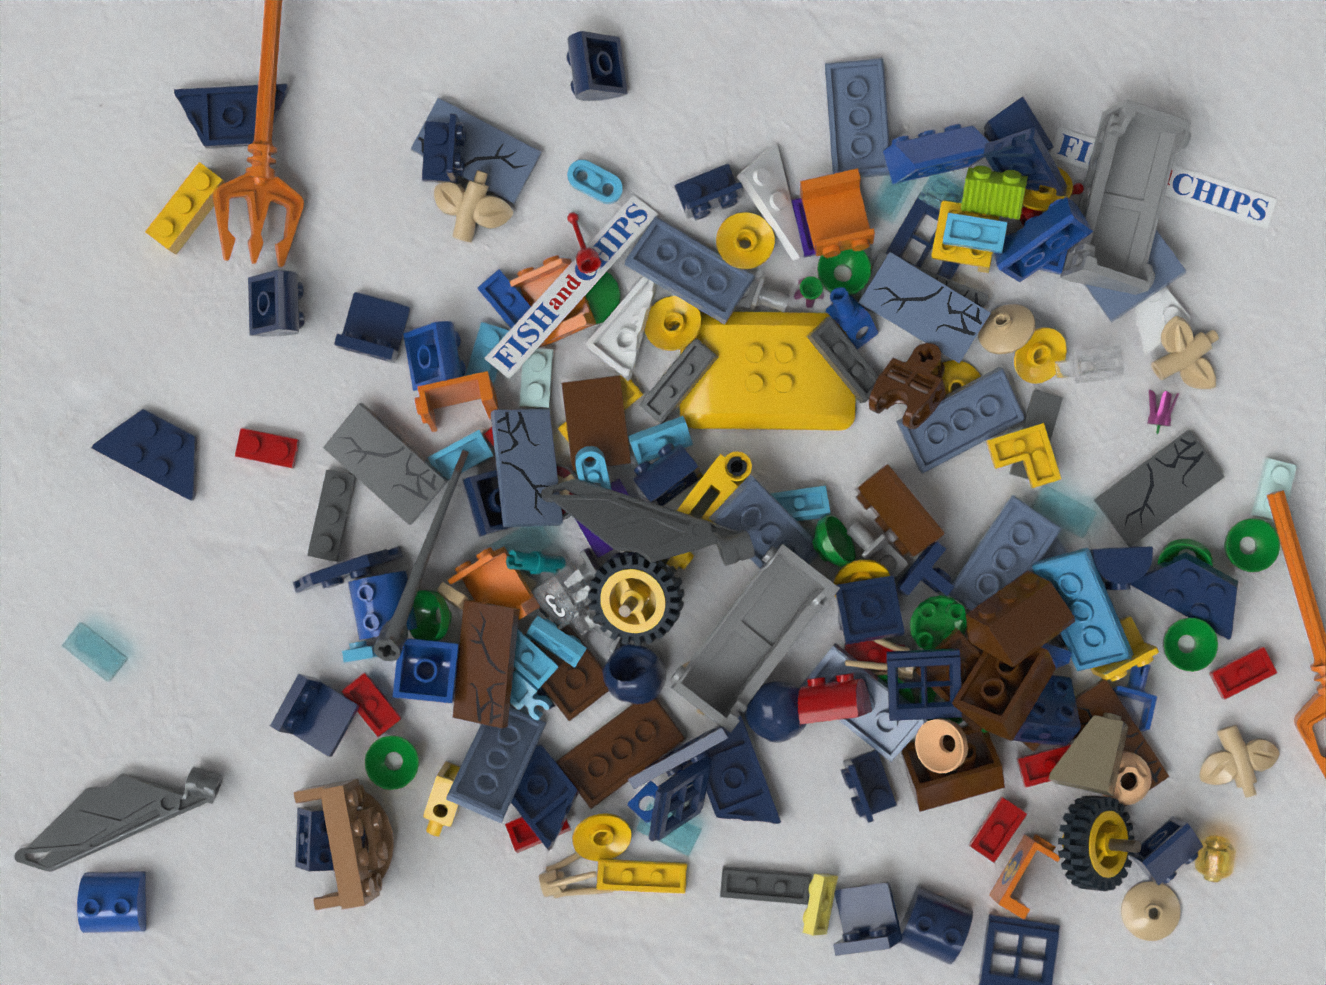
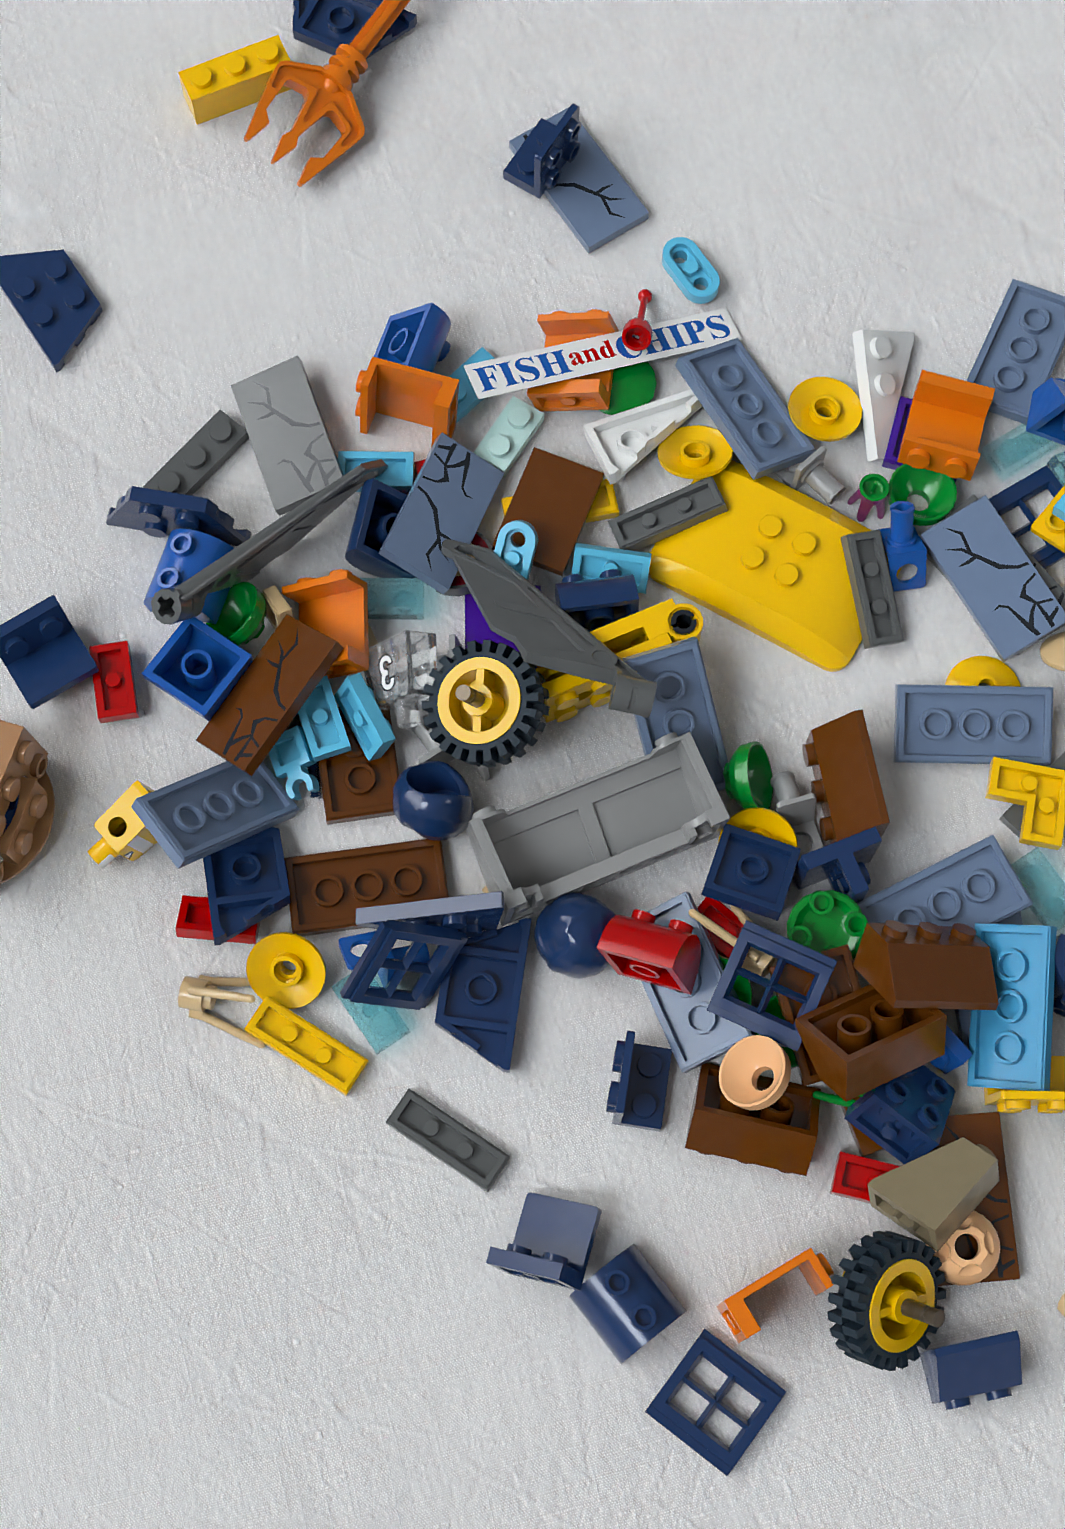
camera: 30 degrees right, 15 degrees down
(267, 448) = (170, 358): red plate -> none
(275, 304) = (271, 214): dark blue brick -> none
(358, 651) = (140, 619): medium azure plate -> none
(373, 327) = (359, 294): dark blue bracket -> none
(376, 765) = (87, 739): green piece -> none
(471, 206) = (542, 227): tan plant -> none
(504, 298) = (520, 328): blue plate -> none
(535, 562) = (391, 618): teal pin -> none
(596, 66) = (757, 155): dark blue brick -> none
(708, 192) = (811, 343): dark blue bracket -> none
(805, 503) = (740, 721): medium azure plate -> none
(820, 904) = (501, 1195): light yellow plate -> none
(911, 383) = (934, 651): reddish brown piece -> none
(997, 829) = (770, 1226): red plate -> none
(1136, 691) = (1028, 1151): blue bracket -> none
(1137, 905) = (890, 1443): tan dish -> none
(1216, 858) = (1029, 1414): clear yellow head -> none

